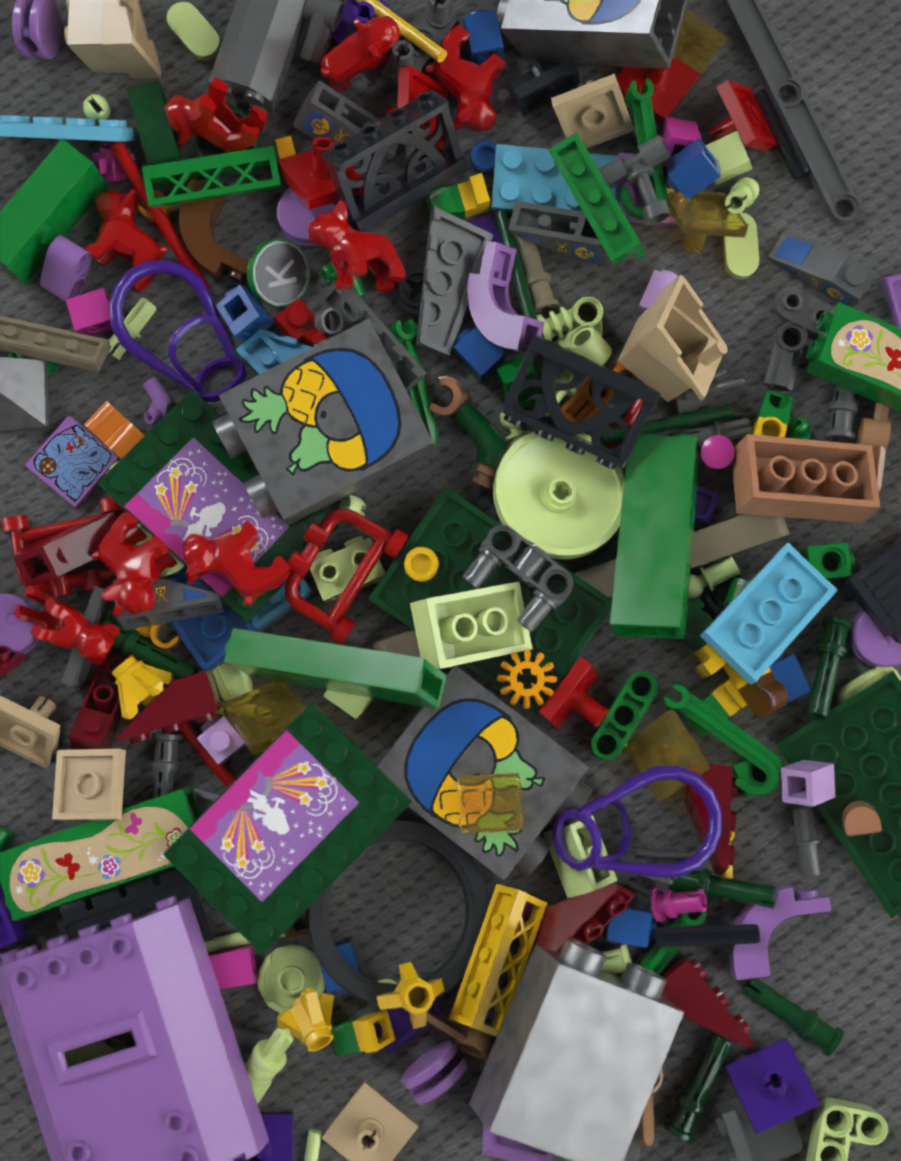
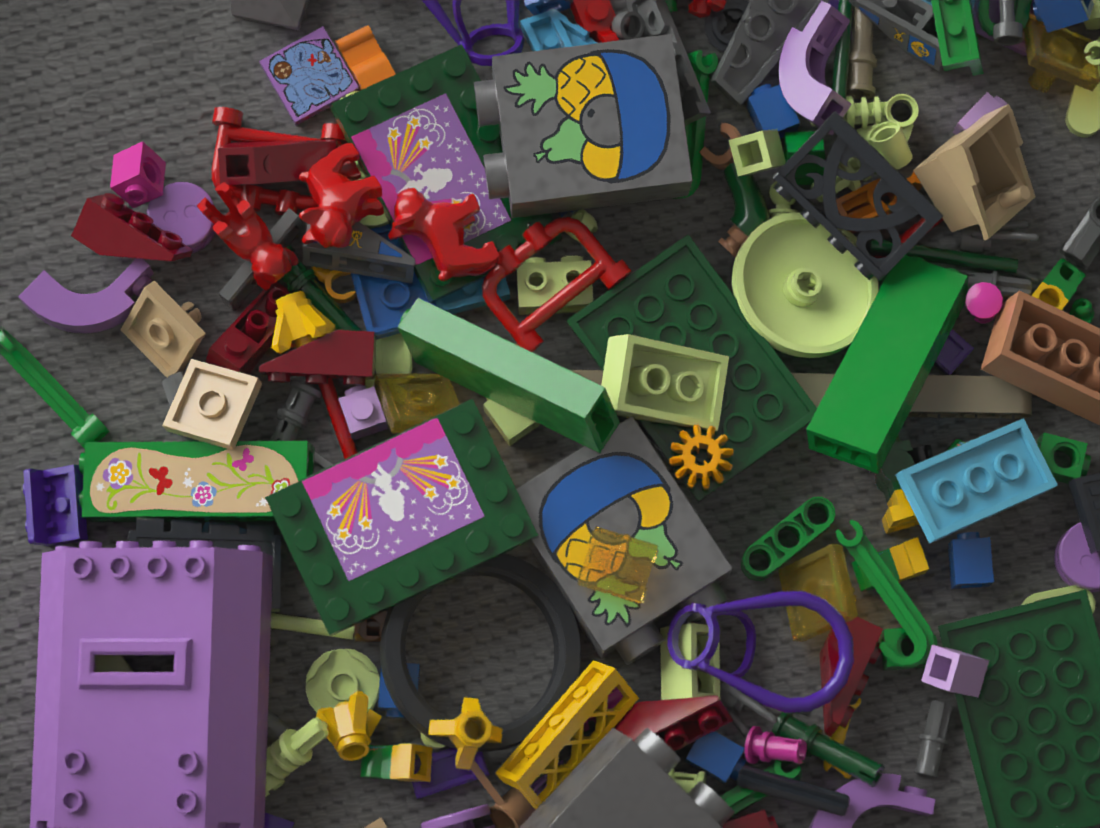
camera: 15 degrees right, 5 degrees down
(160, 403) = (421, 48): medium lavender arm -> none
(234, 966) = (291, 648): dark pink brick -> none
(421, 564) = (634, 304): yellow tile -> none
(479, 393) = (757, 152): none -> yellowish green brick
(528, 565) = (744, 342): dark grey piece -> none
(573, 696) = (742, 497): red tile -> none
(712, 576) = (932, 429): yellowish green pin -> none
(762, 696) = (939, 560): reddish brown leg -> none
(828, 651) = (1029, 553): dark green pin -> none
(860, 819) = (997, 729): nougat brick -> none

